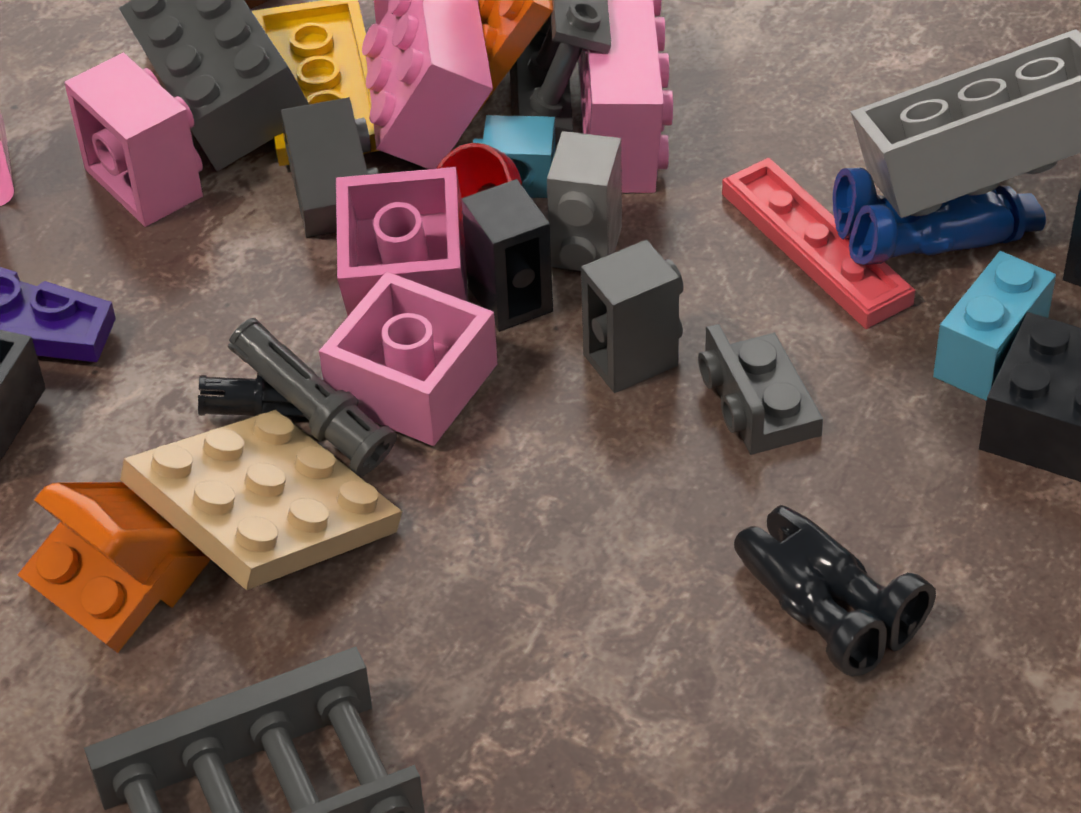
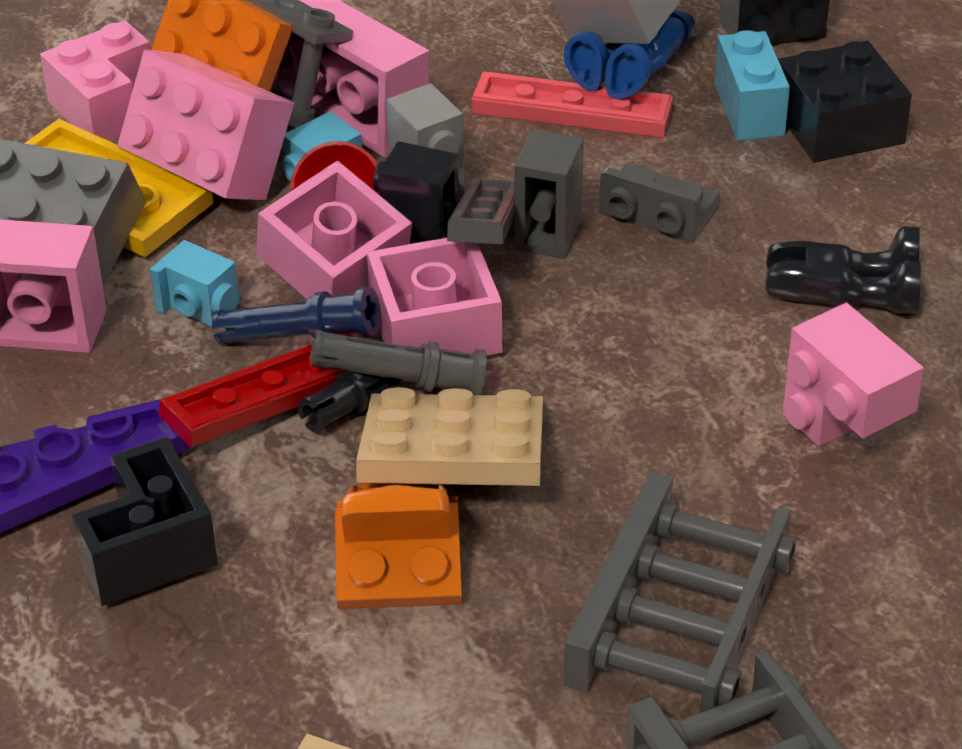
camera: 45 degrees left, 5 degrees down
(174, 343) = (244, 396): none -> red tile
(267, 215) = (194, 282): none -> medium azure brick
(299, 308) = (321, 312): none -> dark blue pin
(322, 145) = (205, 214): dark grey brick -> none
(516, 301) = (483, 212): none -> dark grey tile
(628, 684) = (847, 377): none -> bright pink brick

